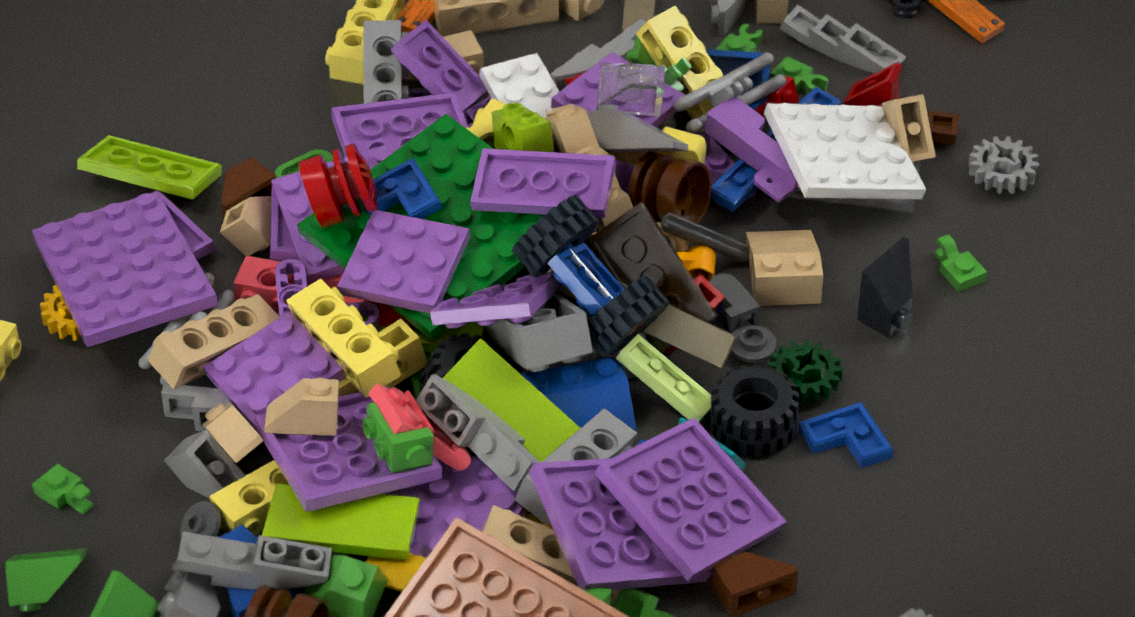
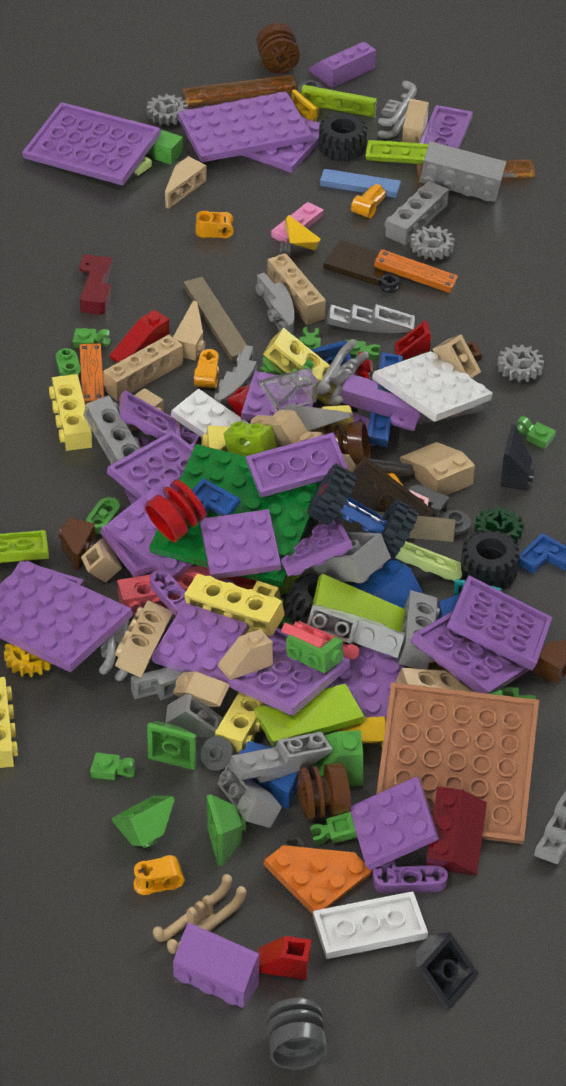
camera: 30 degrees left, 0 degrees up
(147, 486) = (171, 745): none -> bright green slope
(574, 34) = (207, 369): none -> light orange piece

